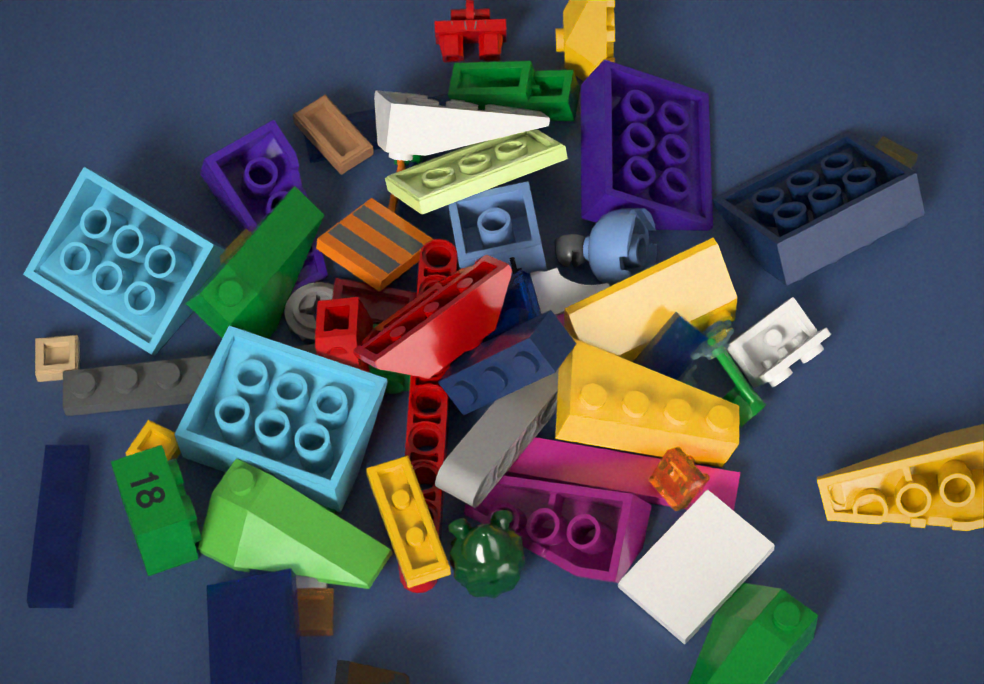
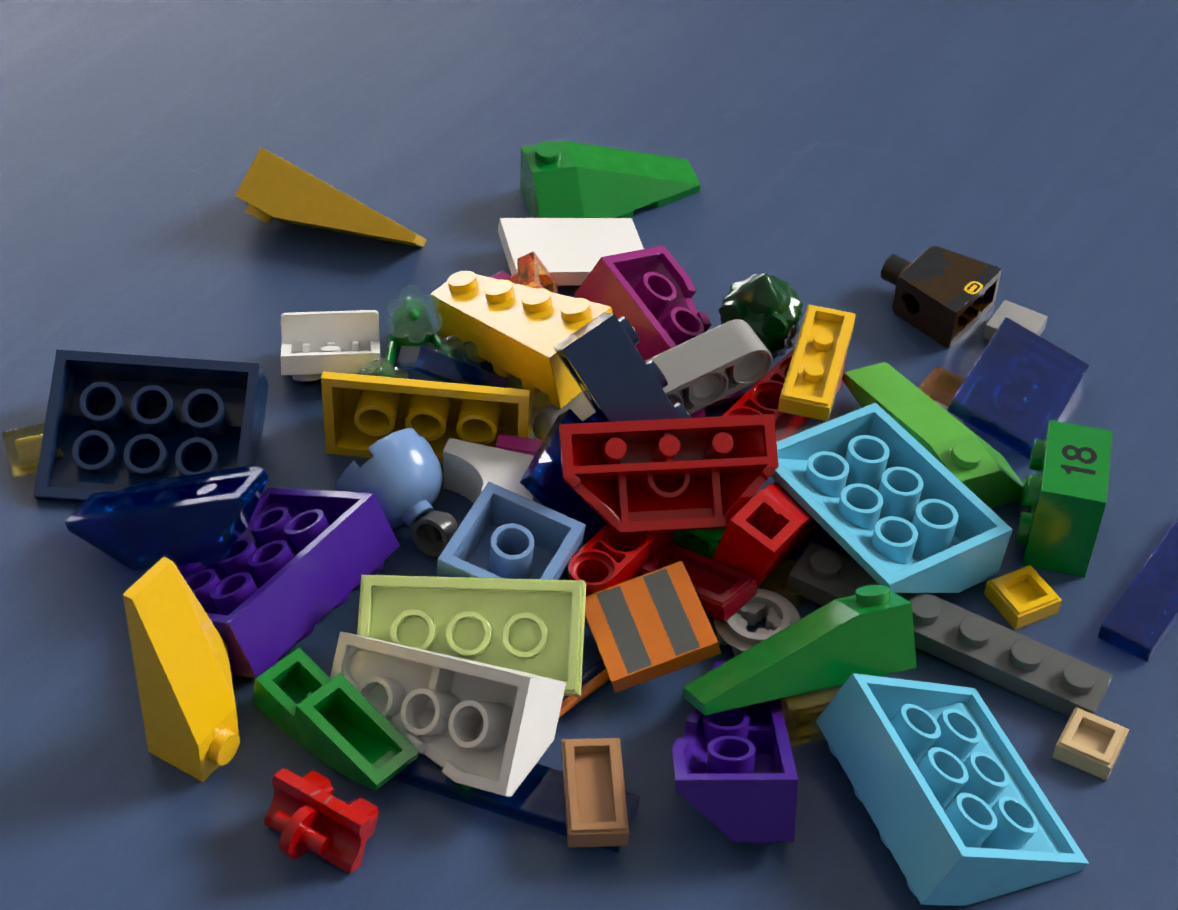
camera: 150 degrees left, 15 degrees down
(728, 134) = (172, 517): none -> clear blue wedge

